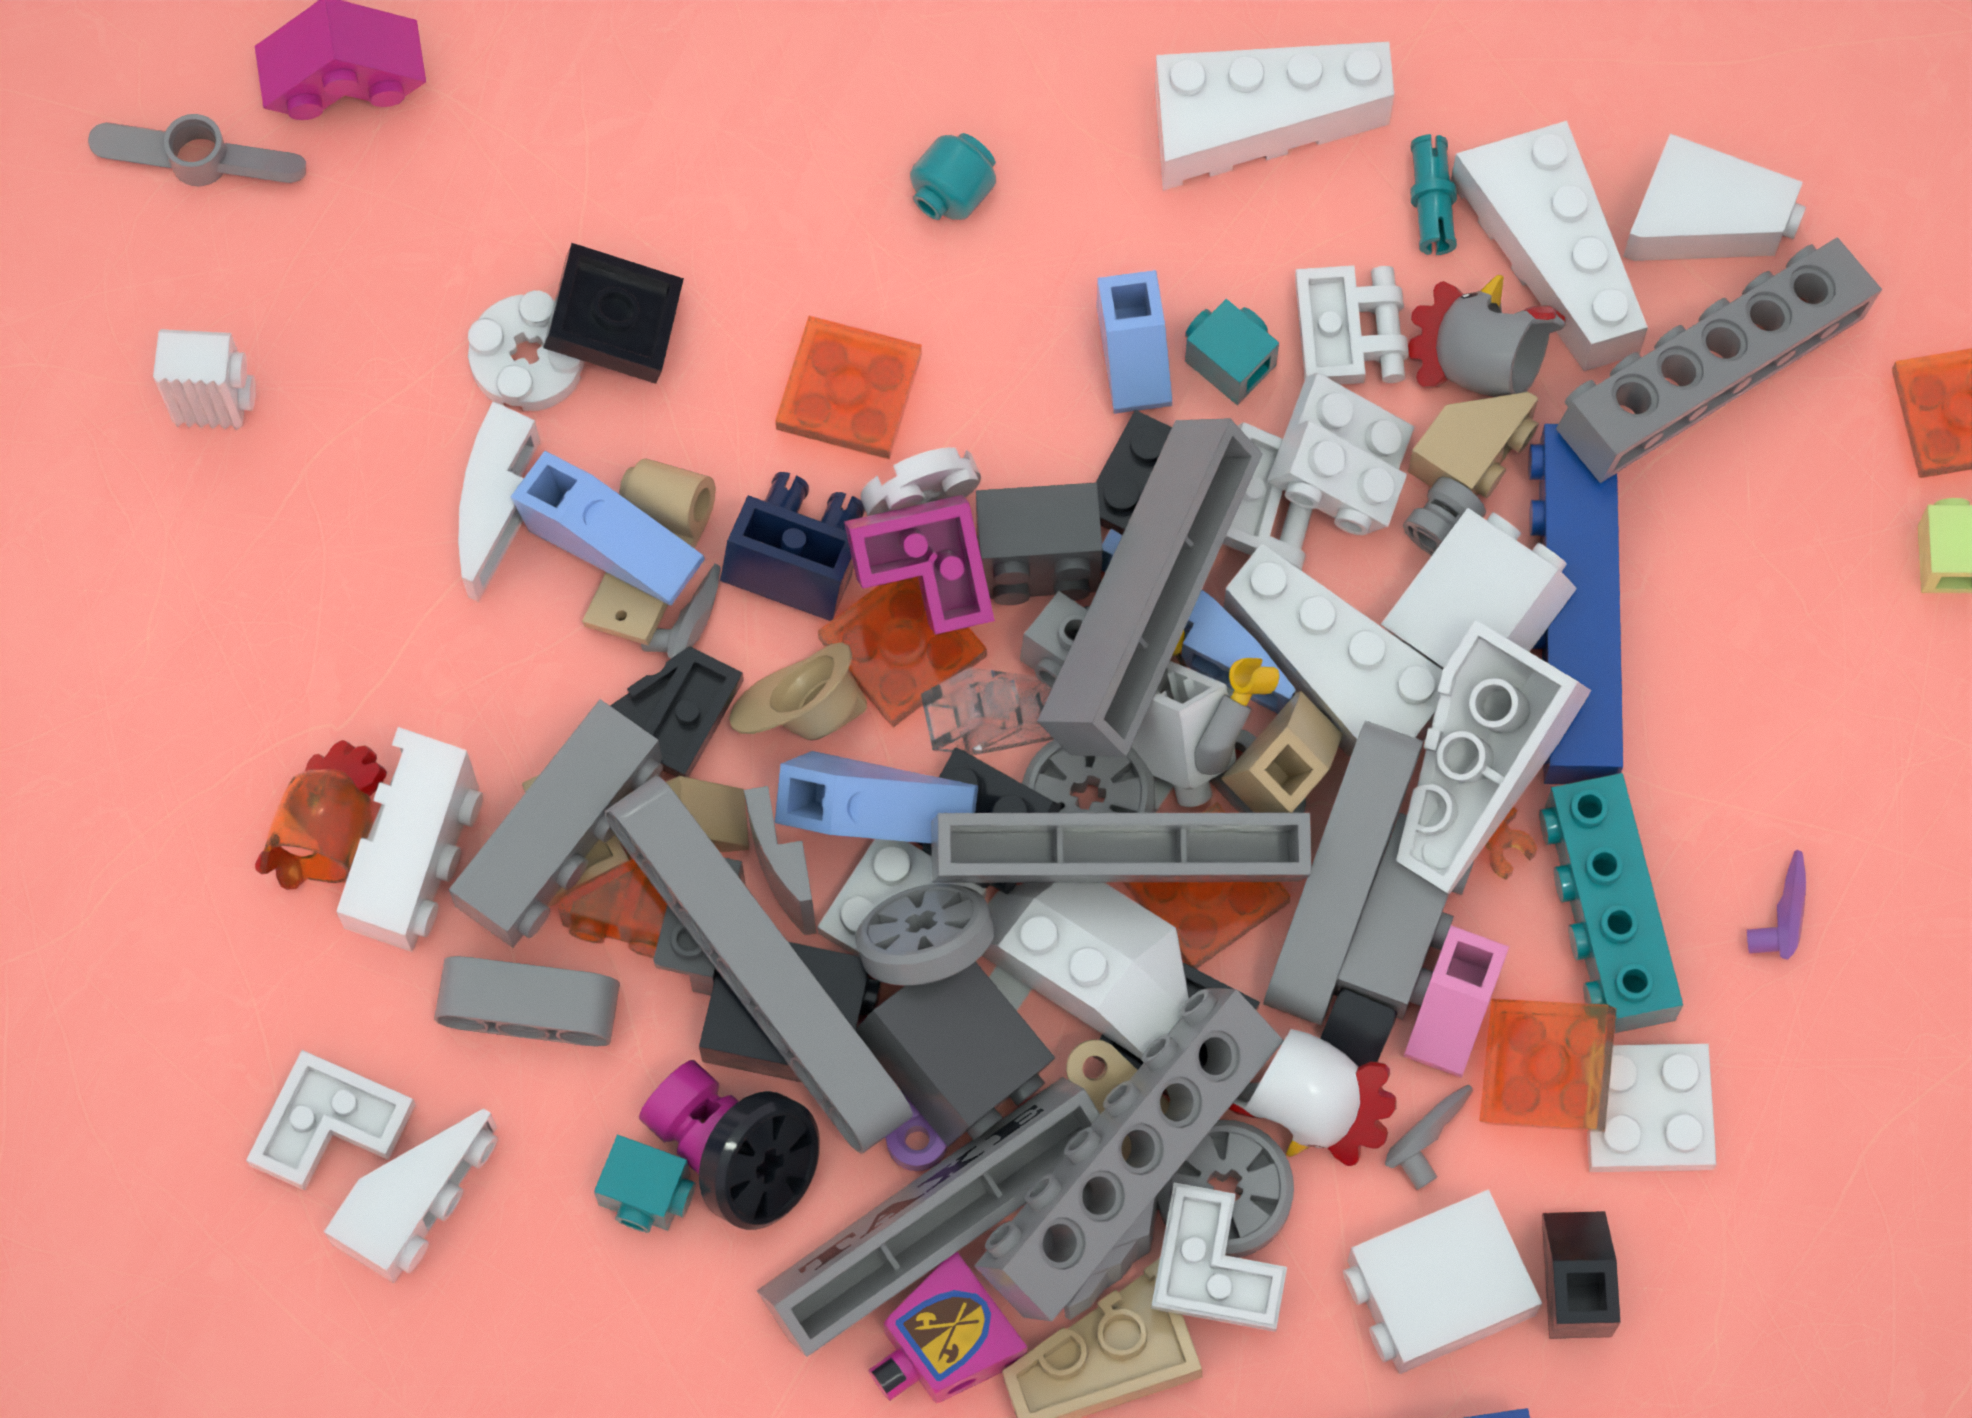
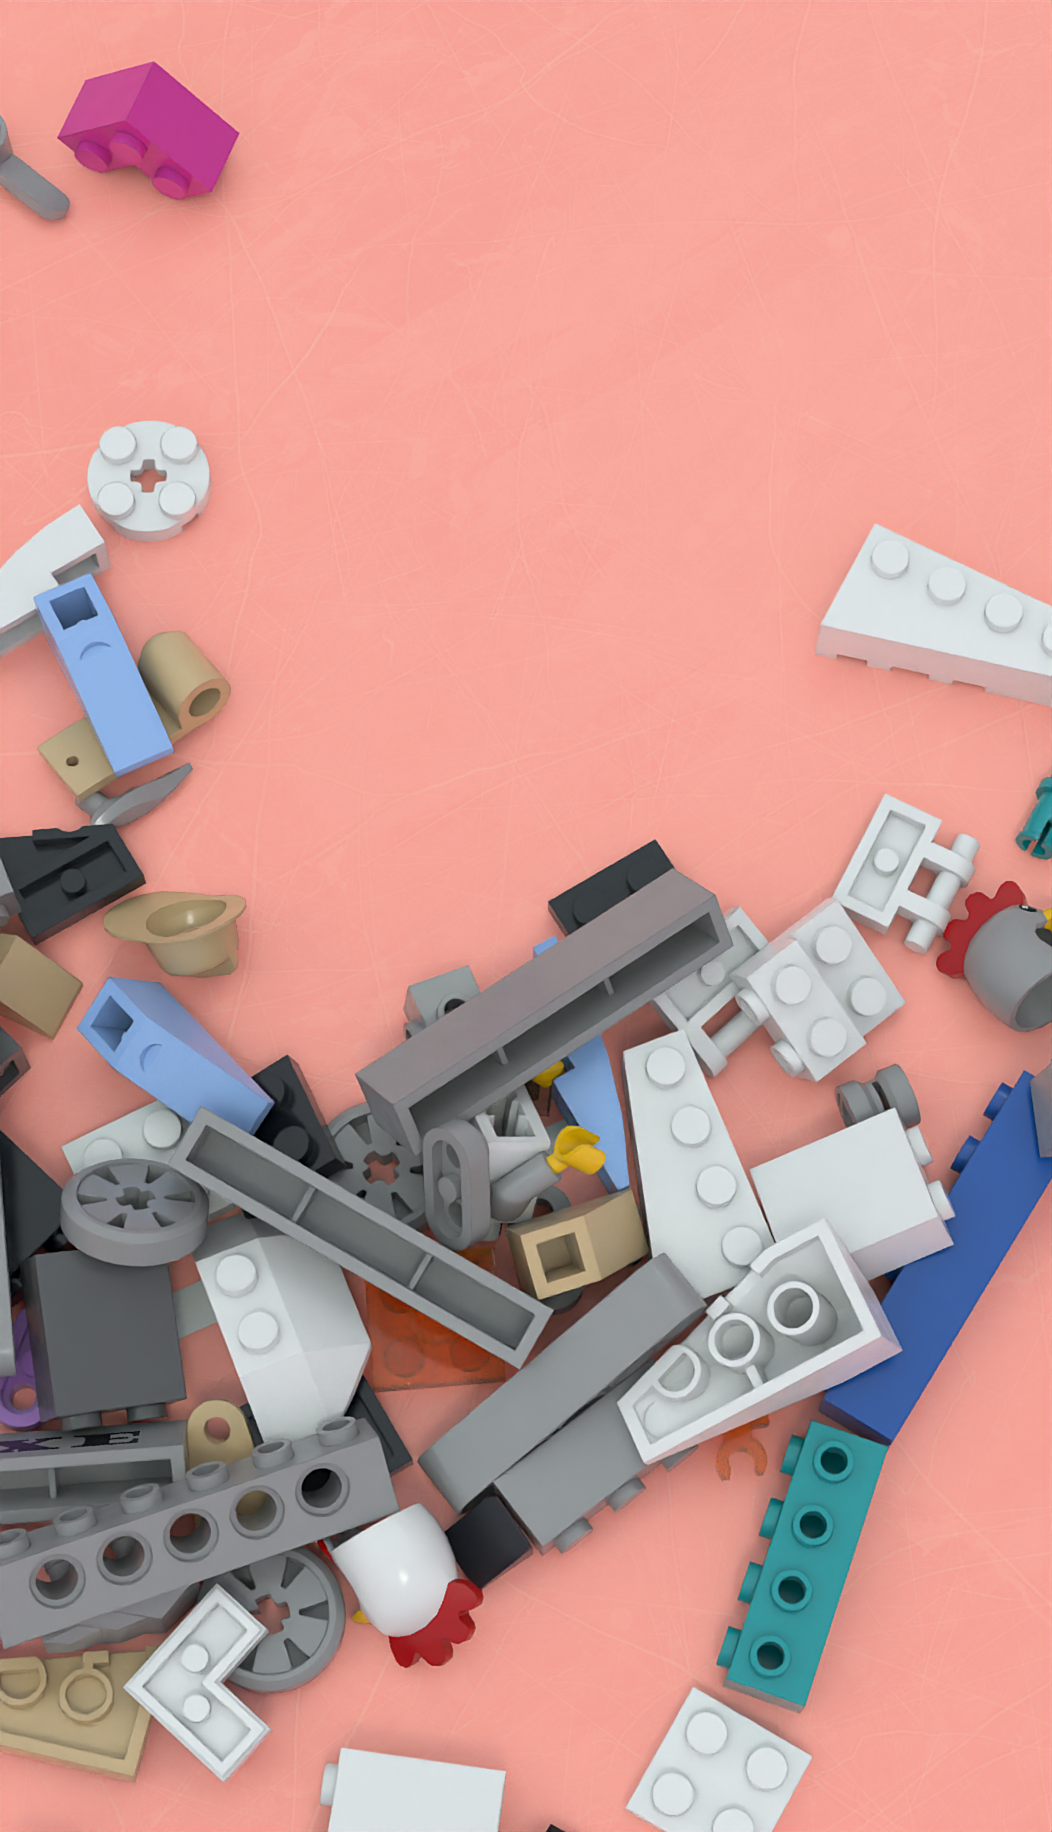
camera: 30 degrees right, 0 degrees up
(613, 313) = (239, 486): black plate -> none
(781, 863) = (55, 1078): light grey slope -> none
(790, 554) = (254, 796): dark blue brick -> none
(848, 387) = (409, 671): clear orange plate -> none
(897, 650) = (306, 932): clear orange plate -> none
(923, 479) = (414, 792): white plate -> none
(927, 542) = (370, 854): dark pink brick -> none
(953, 177) = (625, 534): teal head -> none
(985, 711) = (331, 1033): clear slope -> none
(1040, 541) = (478, 907): dark grey brick -> none
(1134, 341) = (691, 775): light blue slope -> none
(1167, 753) = (457, 1184): none -> light grey plate
(1231, 349) = (779, 833): teal brick -> none
(1425, 1132) = (488, 1677): light grey bar -> none
(1456, 1001) = (594, 1570): bright pink slope -> none
(1473, 440) = (951, 1047): tan slope -> none
(1548, 1065) = (641, 1685): clear orange plate -> none
(1789, 915) = (970, 1680): medium lavender bar -> none

